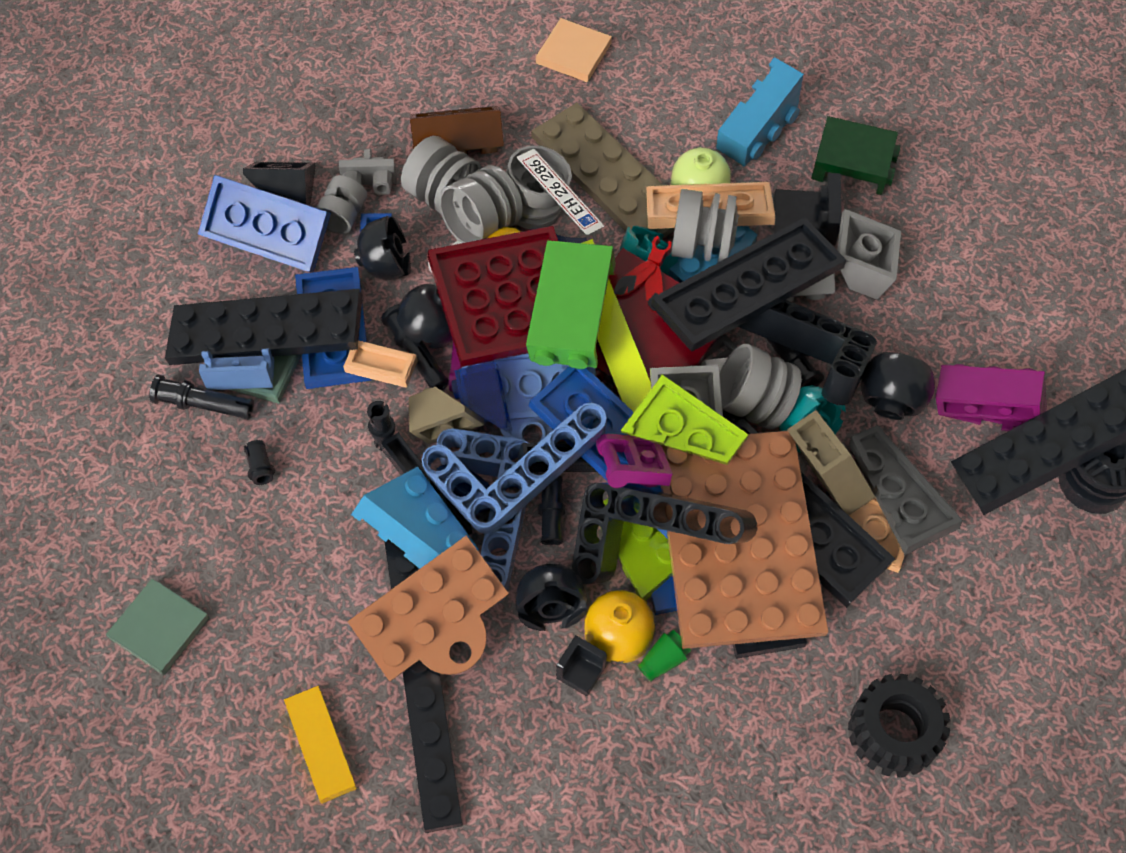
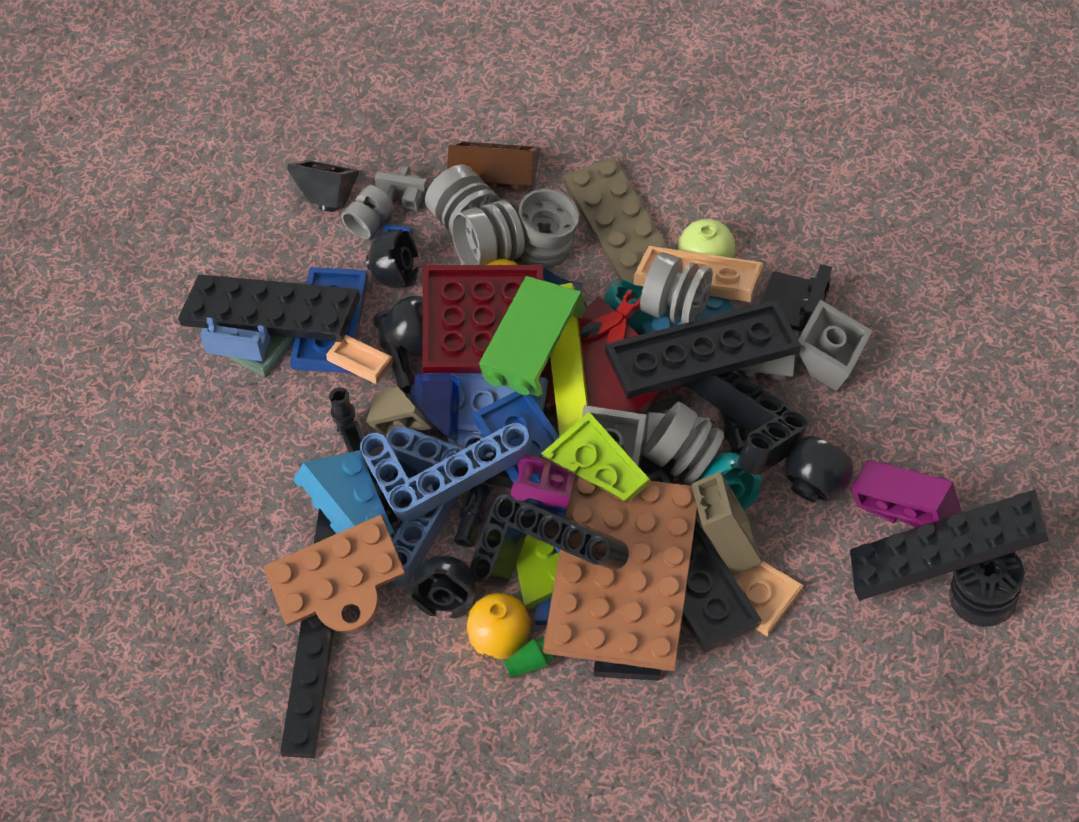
camera: 20 degrees right, 5 degrees down
(157, 626) = (110, 541): sand green tile -> none
(187, 395) = (187, 354): black pin -> none
(258, 463) = (231, 429): black pin -> none
(264, 223) = (295, 217): plate -> none
(320, 744) = (215, 665): yellow tile -> none
(560, 192) = (561, 236): white sticker -> none
(573, 50) = (628, 106): light nougat tile -> none
(581, 665) = (453, 649): black panel -> none
(763, 115) = (783, 200): dark azure wedge -> none
(857, 152) = (862, 251): dark green panel -> none
(904, 495) = (791, 567): dark grey wing -> none
(918, 705) = (707, 784): black tyre -> none

